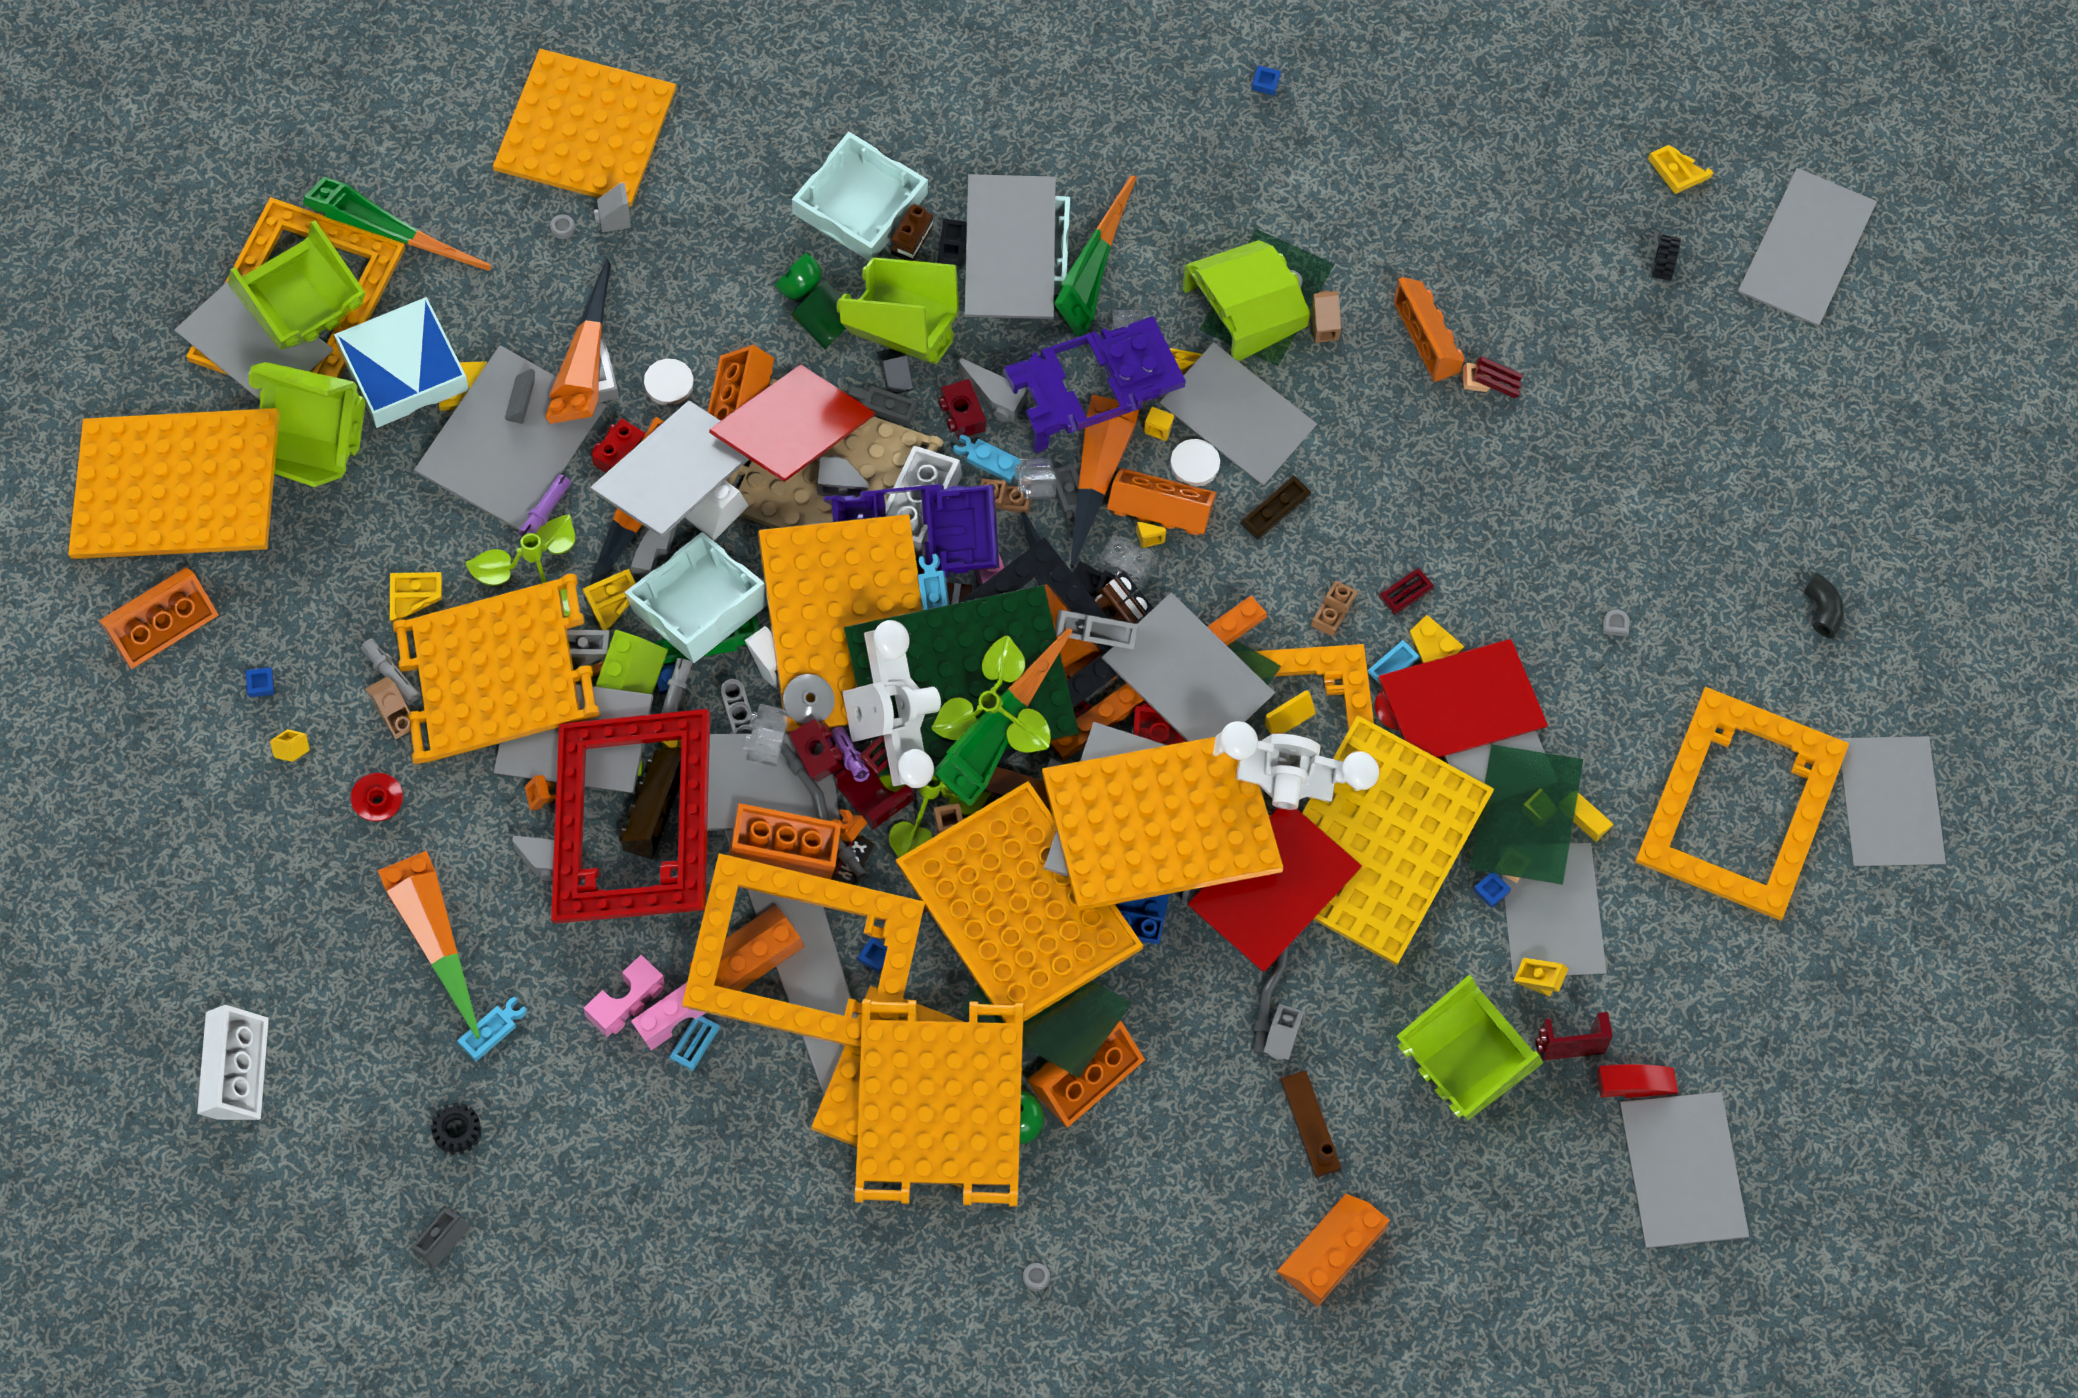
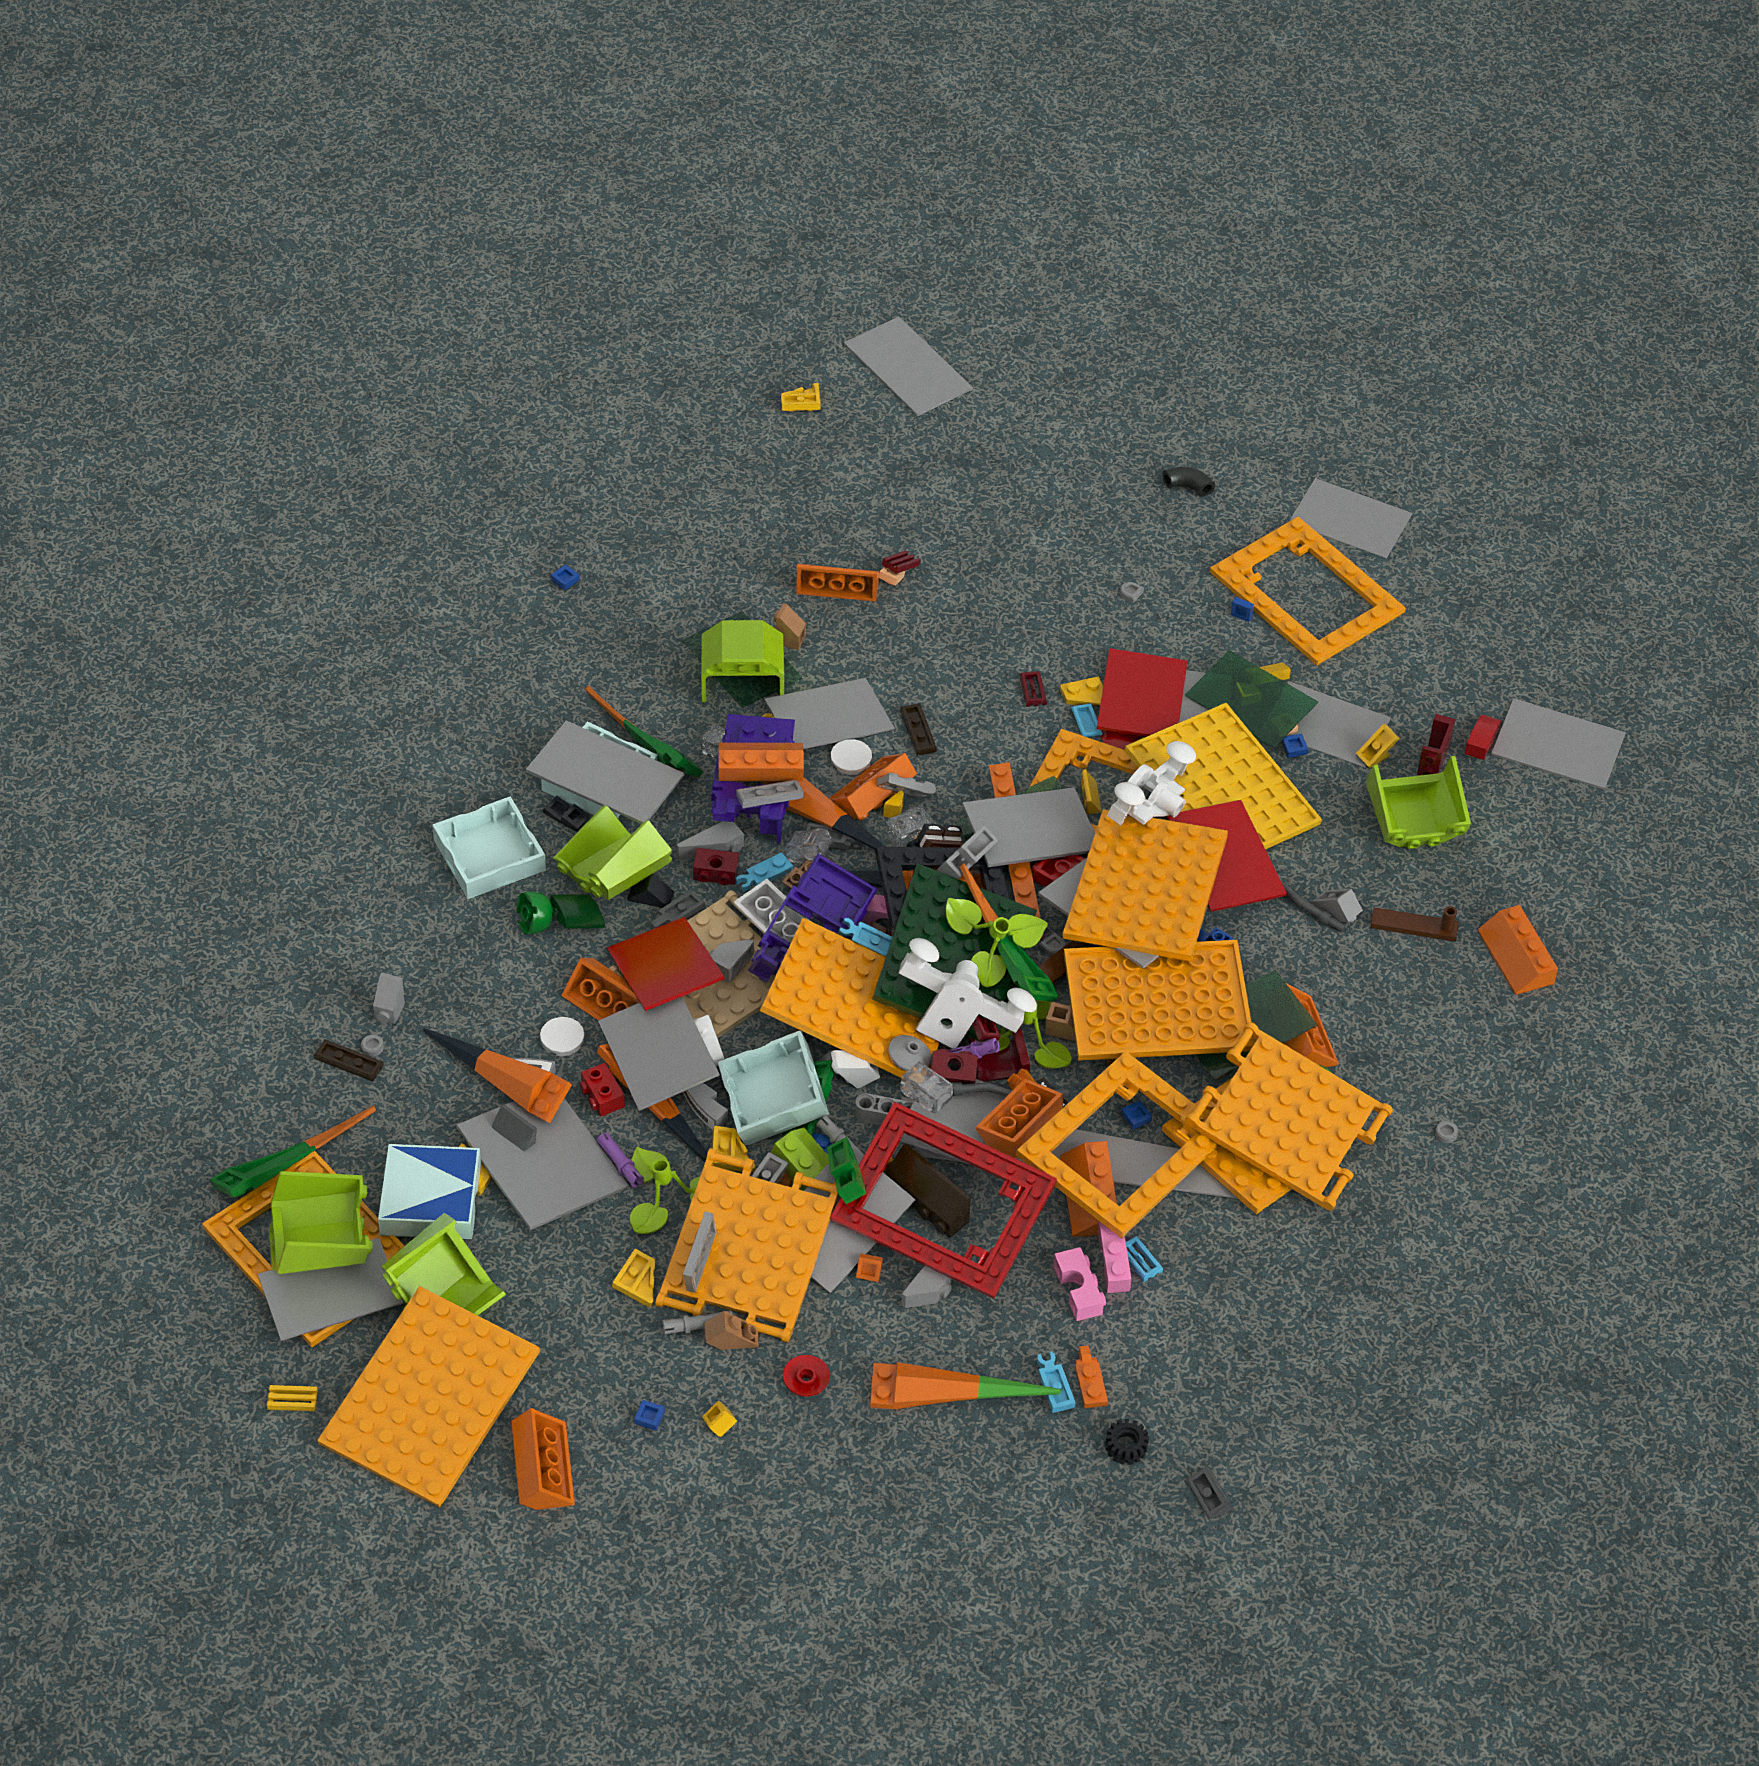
camera: 60 degrees left, 15 degrees down
(116, 358) = (292, 1393): none -> yellow tile
(232, 1064) = (982, 1573): white slope -> none
(444, 627) = (700, 1252): none -> light grey tile
(517, 1061) = (1090, 1379): none -> orange hinge
(533, 216) = (348, 1060): none -> dark brown tile
(584, 126) = (291, 993): light orange plate -> none
(608, 708) = (845, 1170): none -> green slope
(912, 233) = (545, 829): reddish brown hips -> none
(1059, 405) = (769, 793): none -> light grey tile
(1097, 373) = (761, 761): none -> orange slope
(1158, 424) = (812, 760): yellow slope -> none
(1175, 532) = (907, 785): none -> light grey hinge
(1334, 608) = (1020, 733): medium nougat slope -> none
(1662, 747) = (1242, 609): none -> blue plate
(1666, 257) = (871, 432): black tyre -> none

